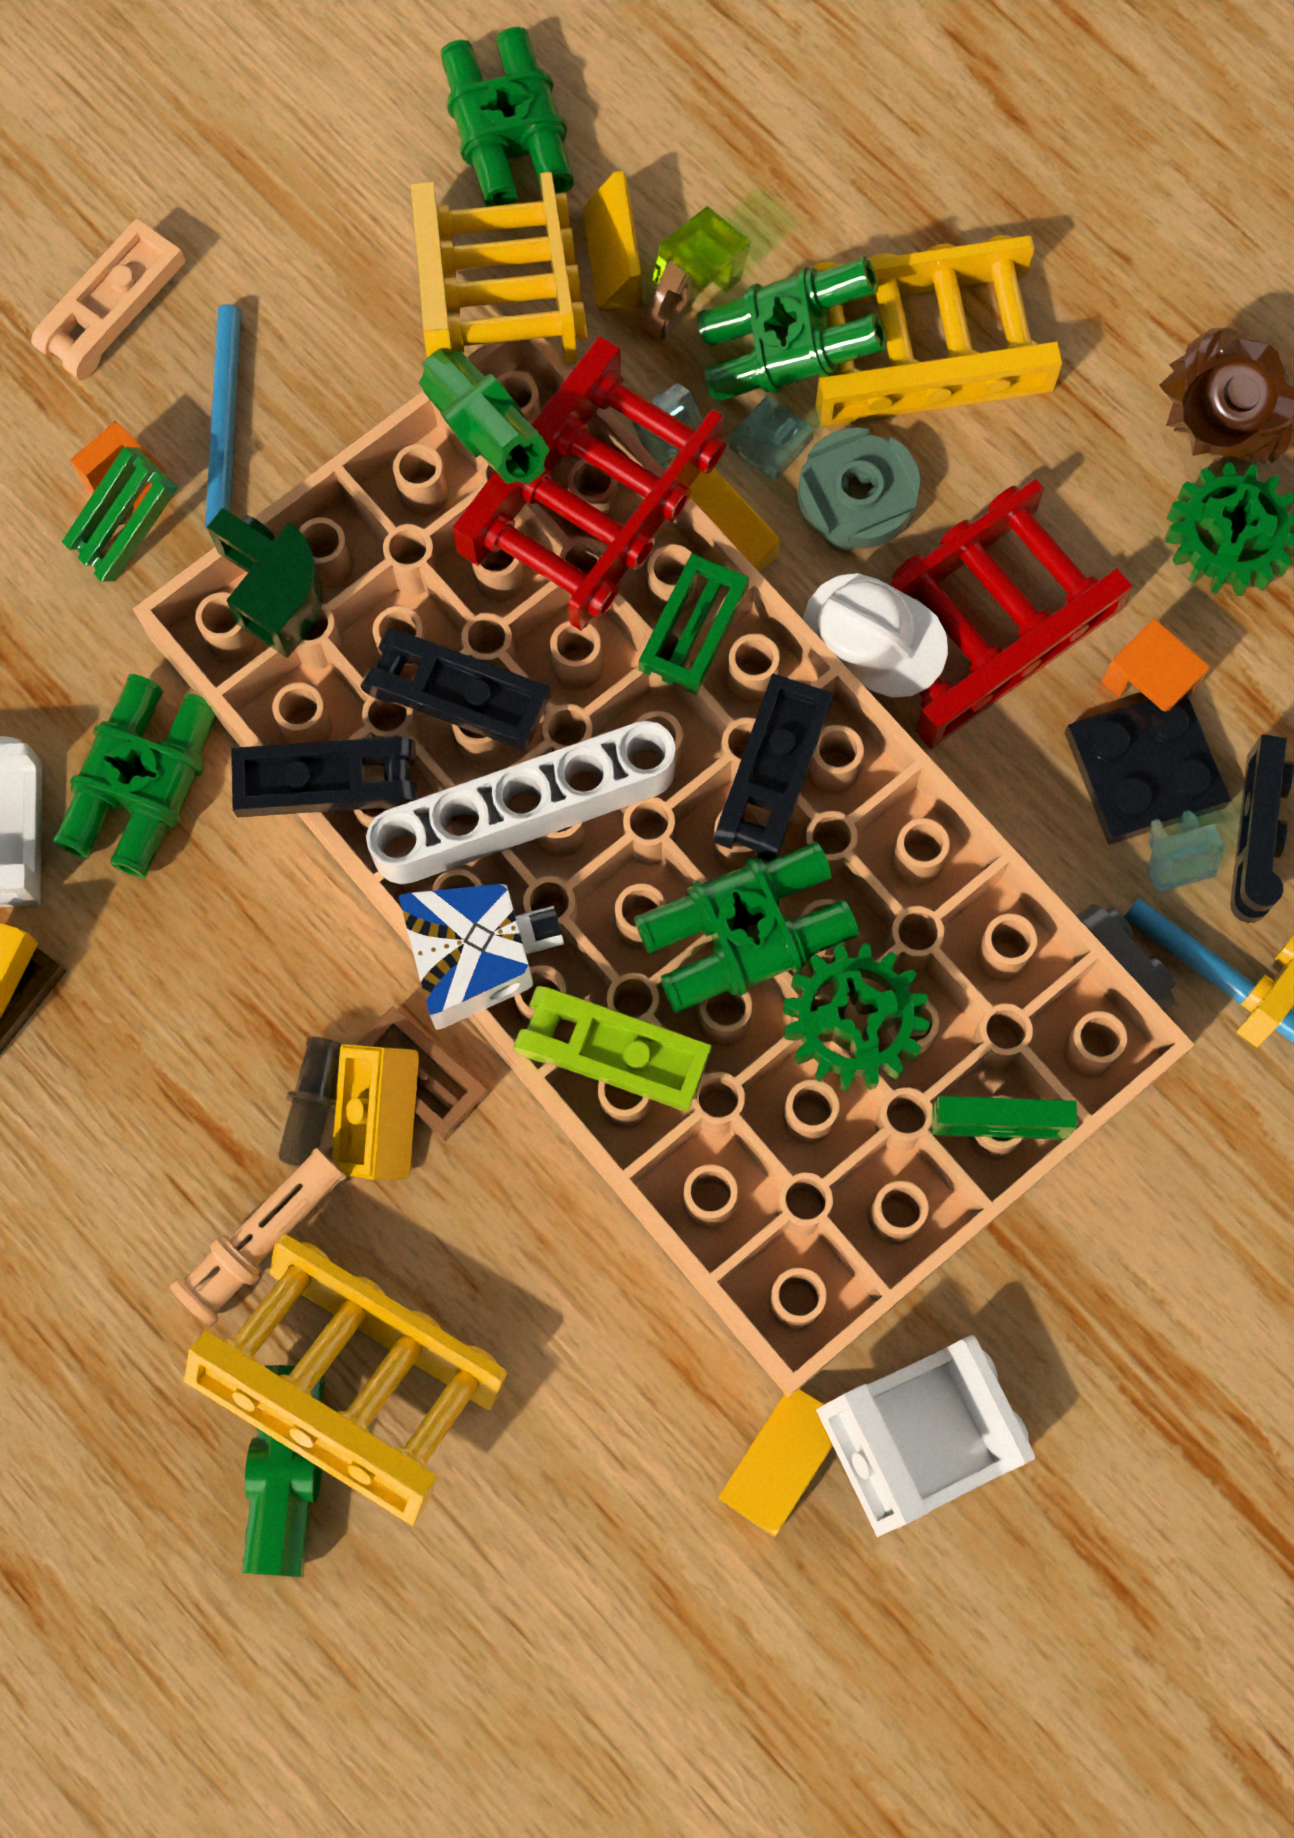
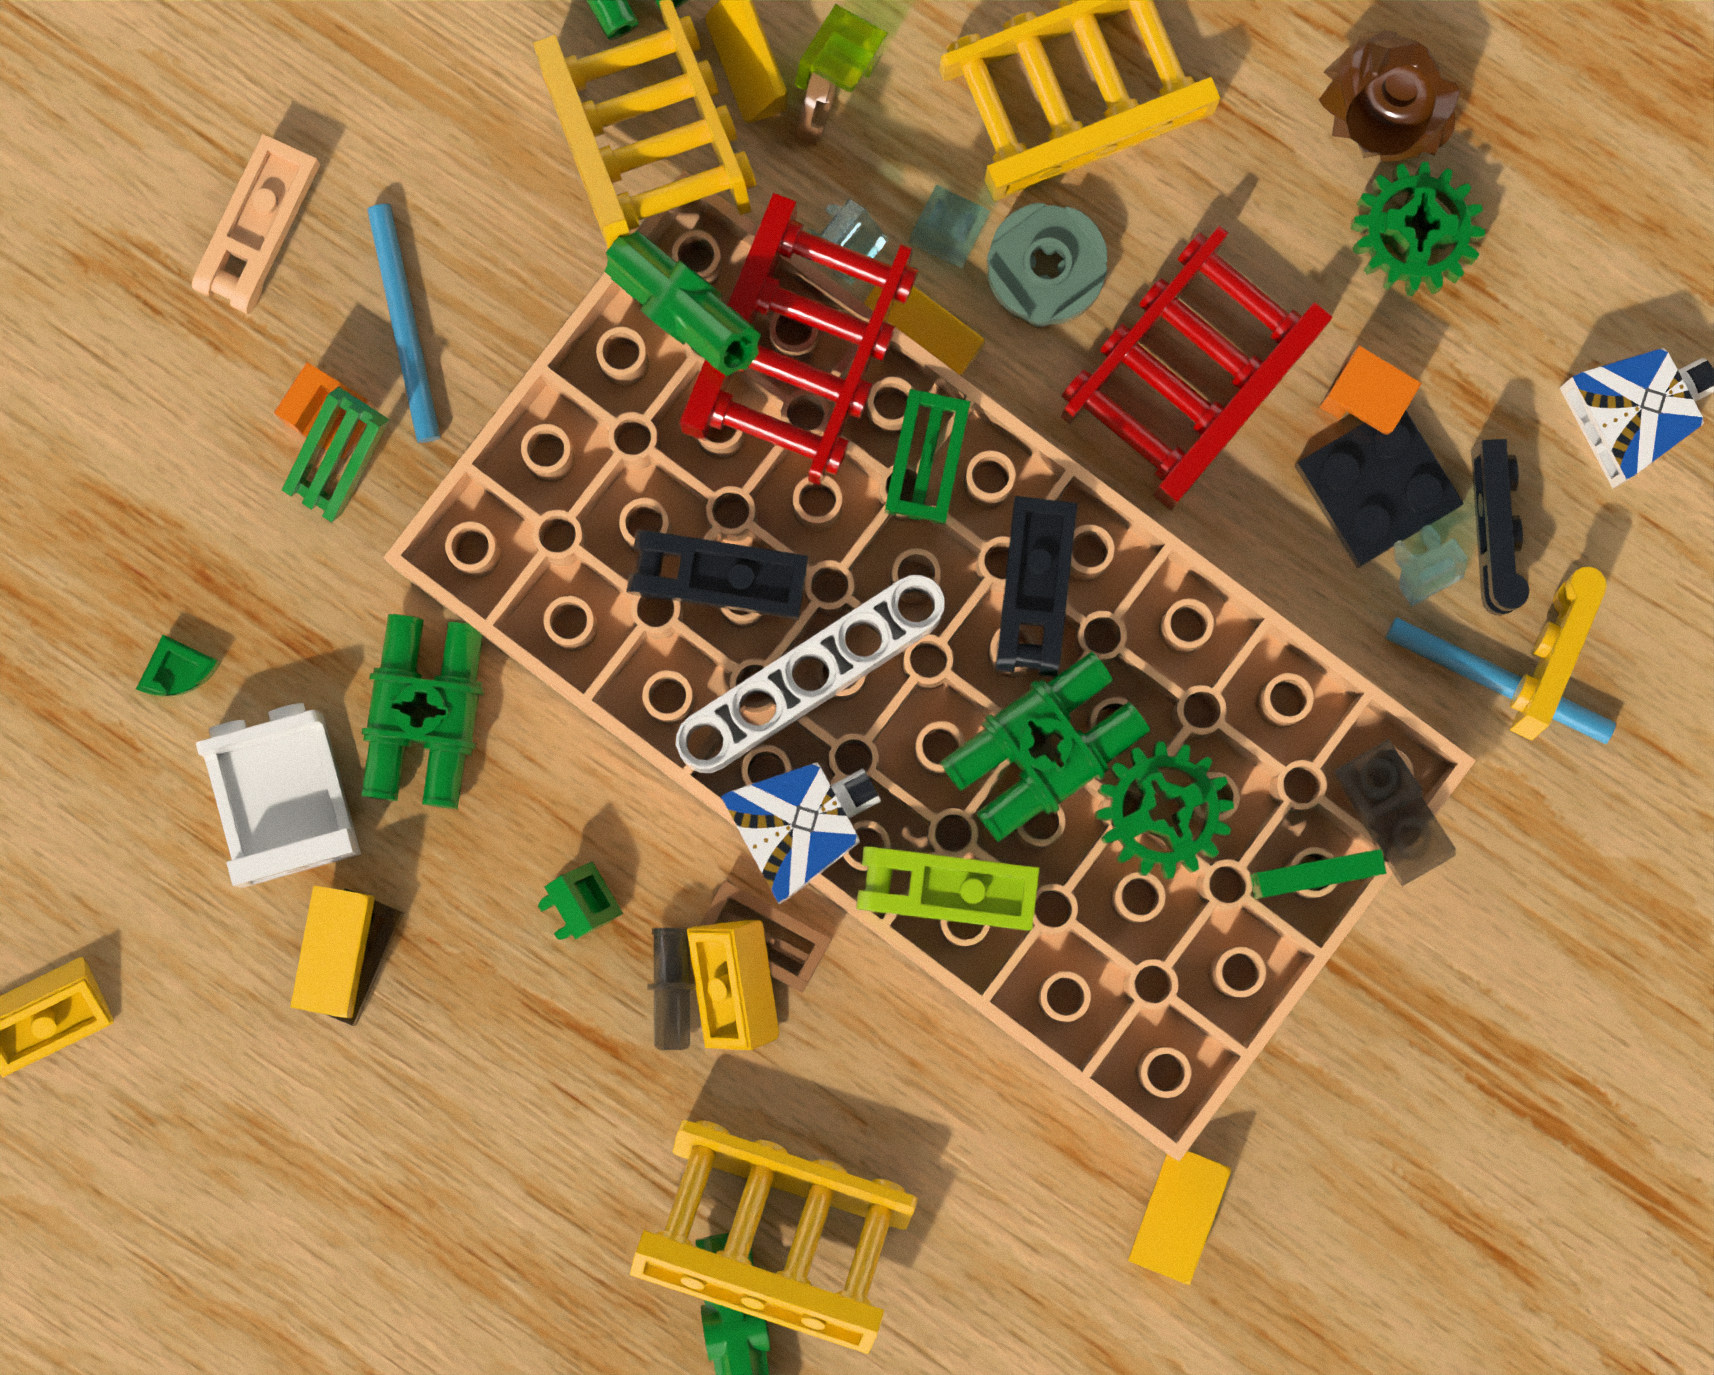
camera: 20 degrees left, 10 degrees up
(237, 1258) = (647, 1155): light nougat pin -> none
(242, 993) = (581, 901): none -> green tile
(282, 582) = (529, 507): dark green brick -> none
(321, 776) = (613, 690): black plate -> none
(809, 343) = (969, 138): green pin -> none
(879, 634) = (1100, 419): white piece -> none
(926, 1434) = (1303, 1165): white panel -> none
(1099, 1076) = (1395, 812): none -> clear smoke slope
(1116, 935) = (1377, 664): dark grey plate -> none

